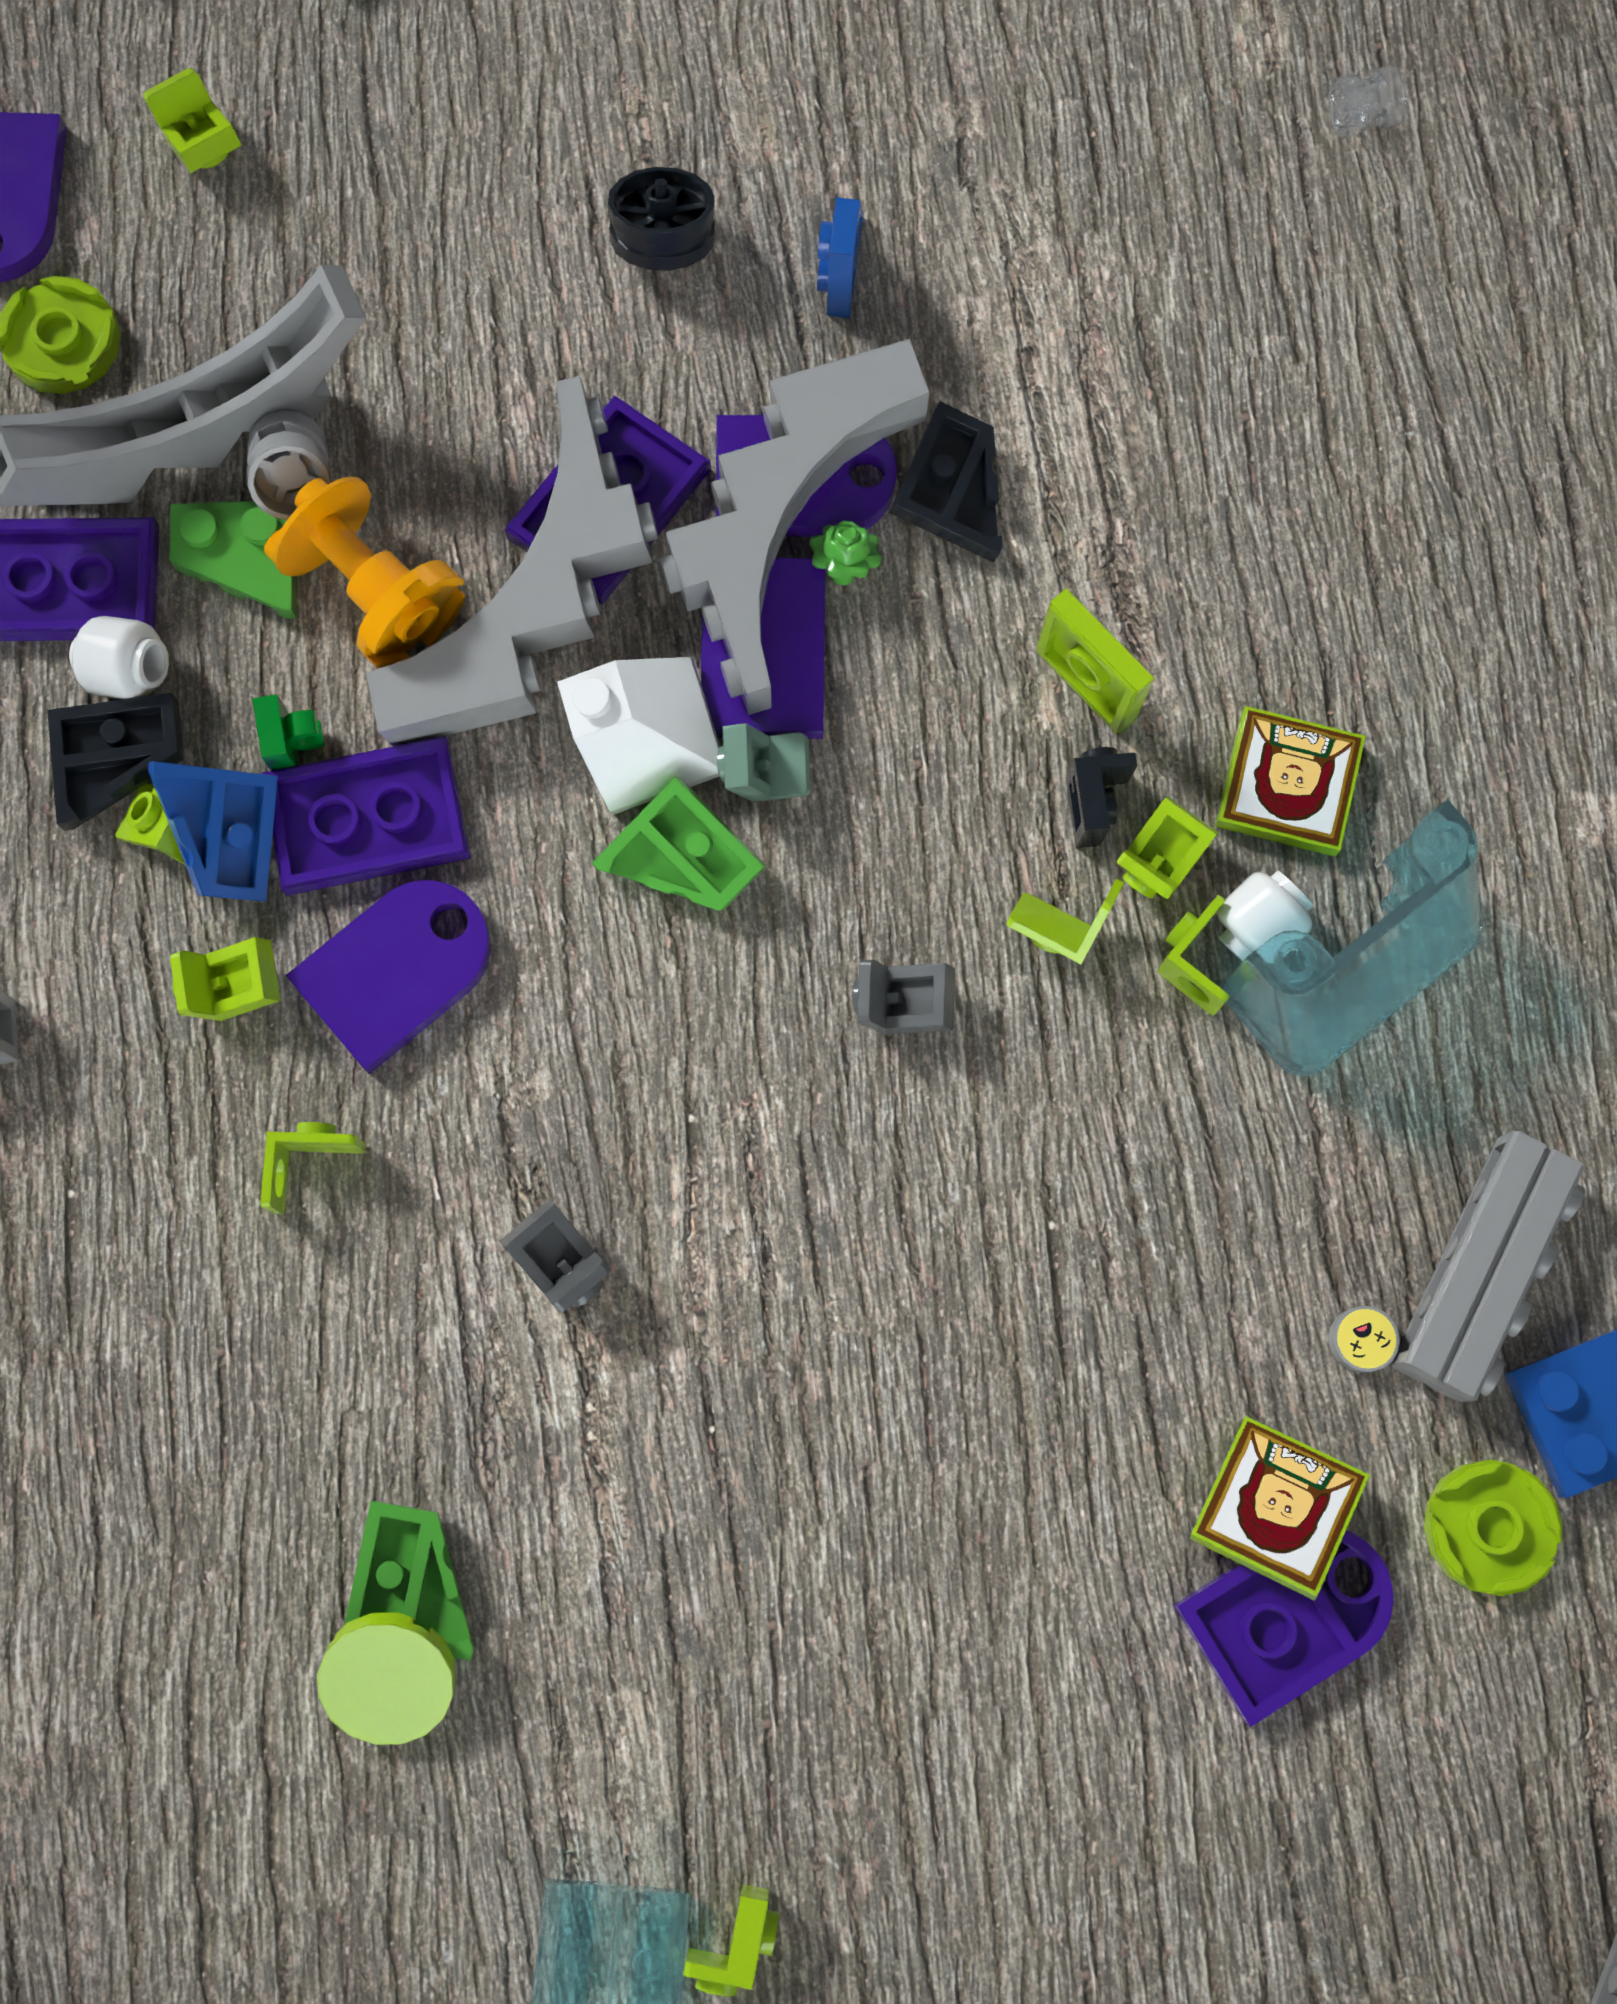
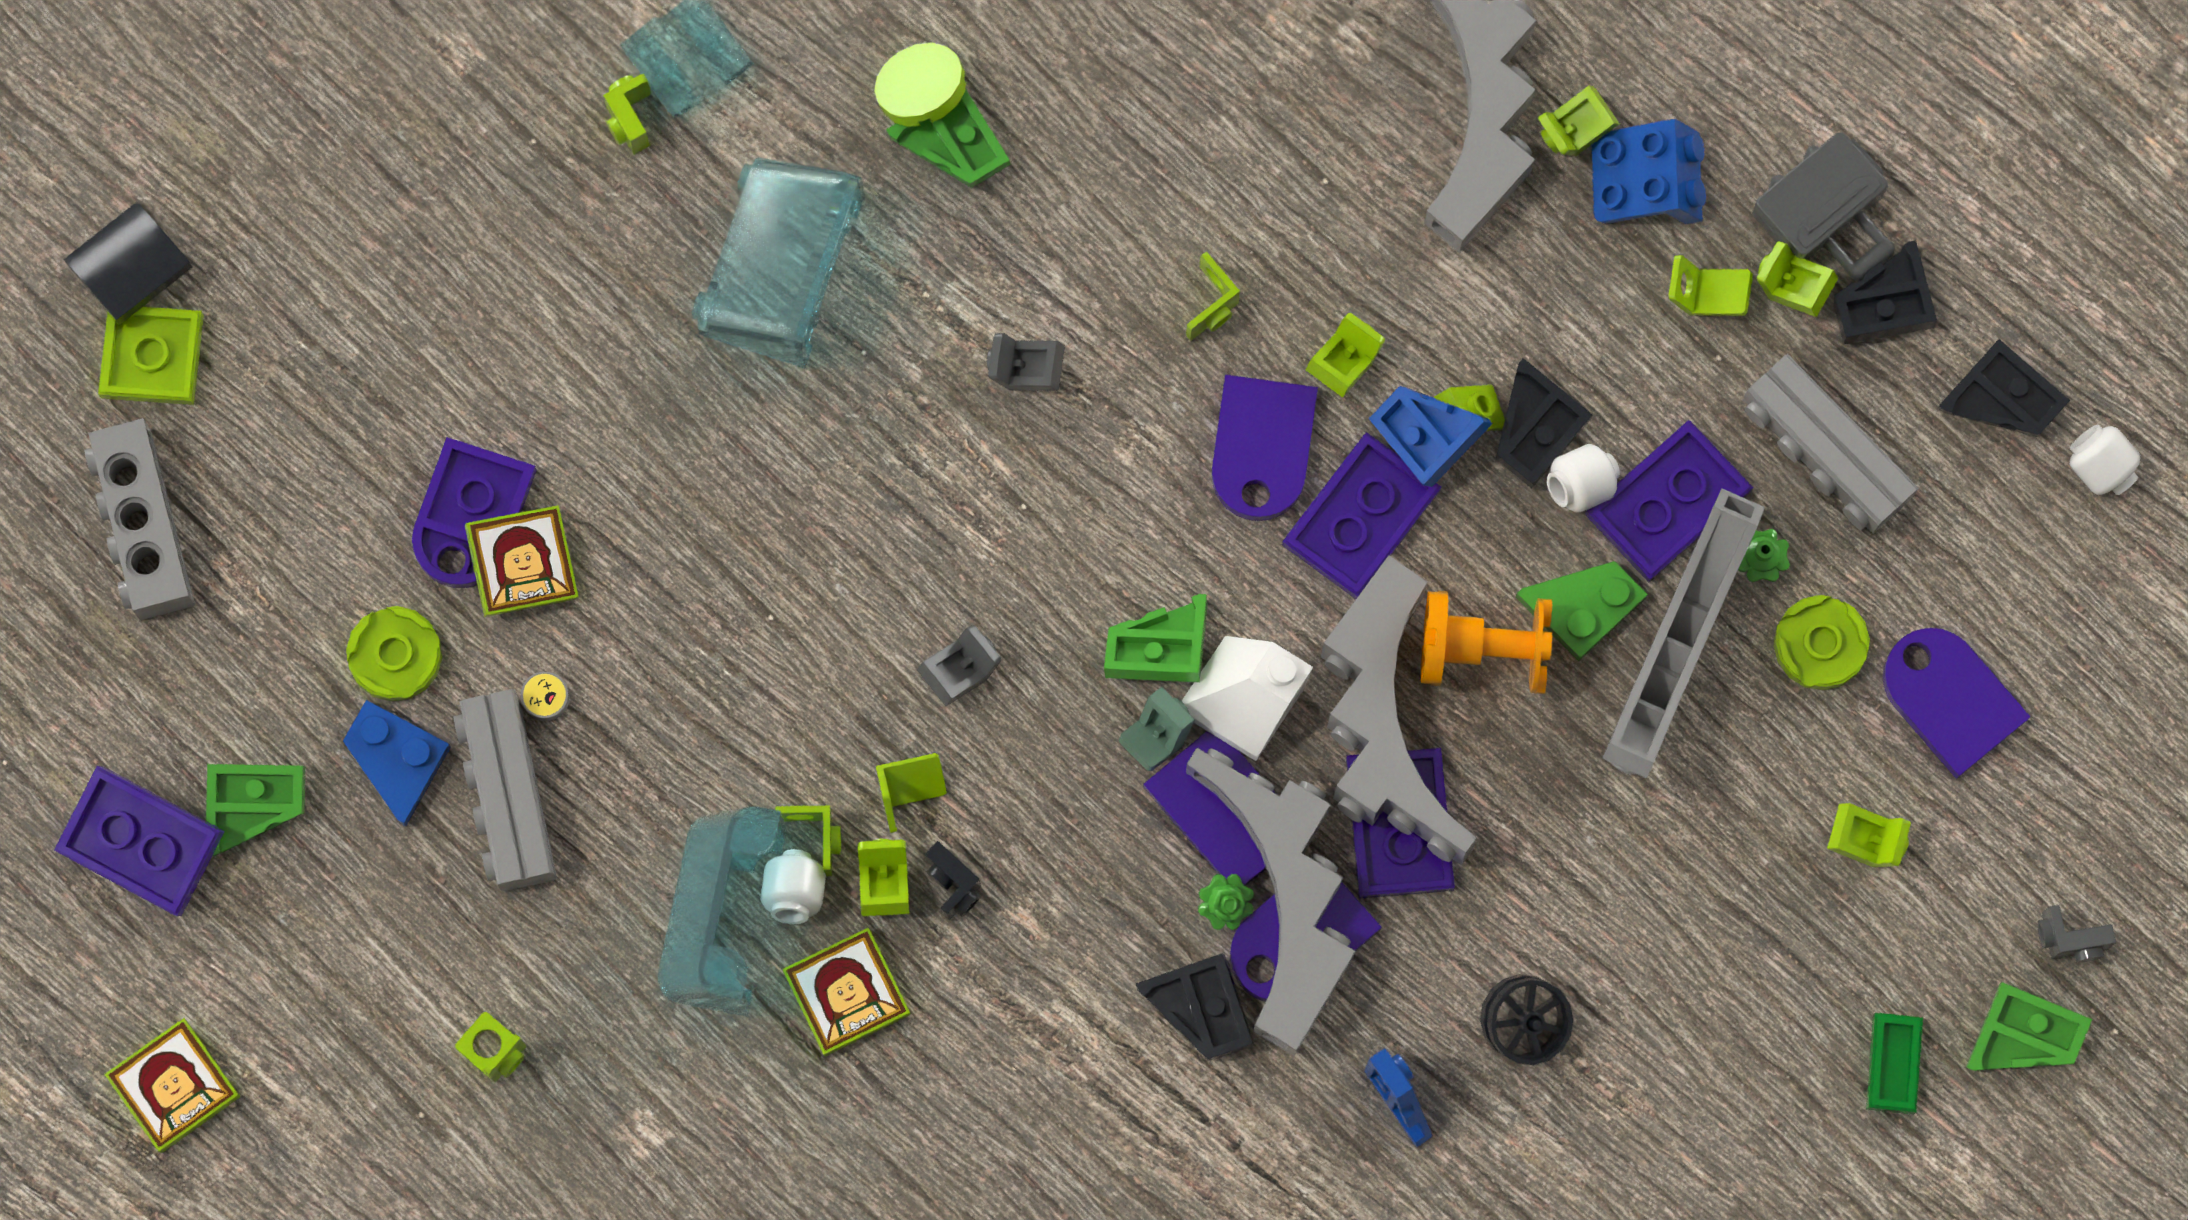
camera: 140 degrees right, 0 degrees up
(282, 457) = (1592, 665): light grey wheel -> none
(283, 732) = (1448, 515): green tile -> none
(713, 1612) = (778, 258): none -> clear light blue windscreen
(1093, 662) = (1017, 946): lime tile -> none

